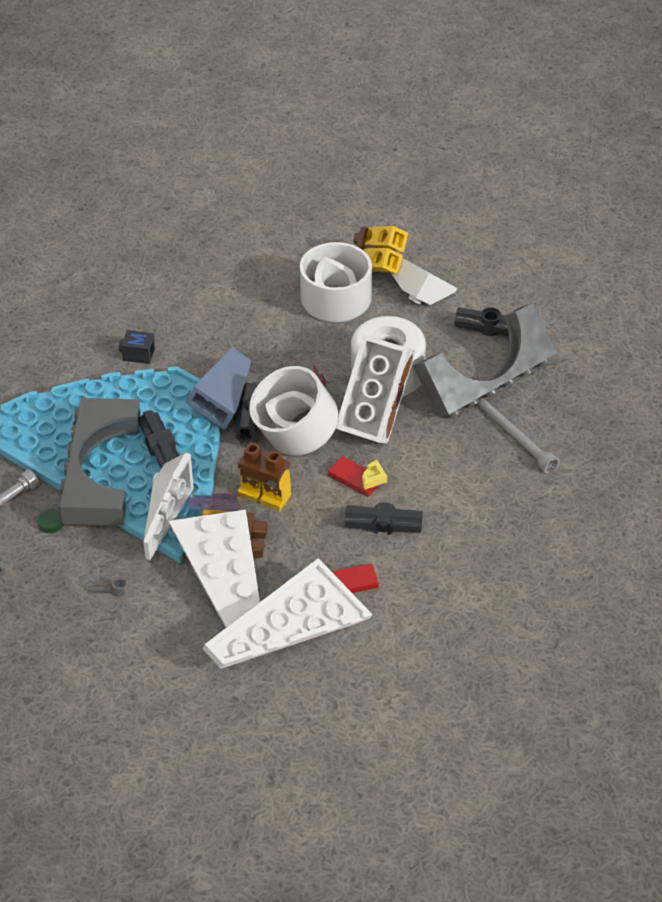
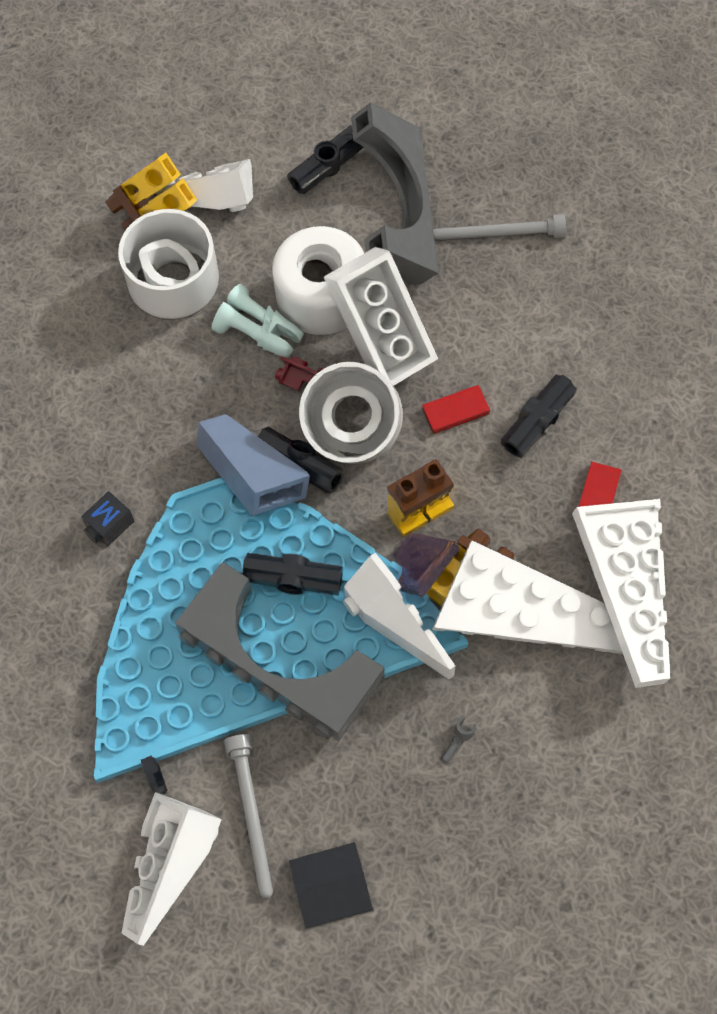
camera: 55 degrees left, 20 degrees up
(50, 521) = (316, 752): dark green tile -> none
(340, 354) = (266, 335): none -> light aqua piece
(373, 475) = (474, 391): light yellow tile -> none

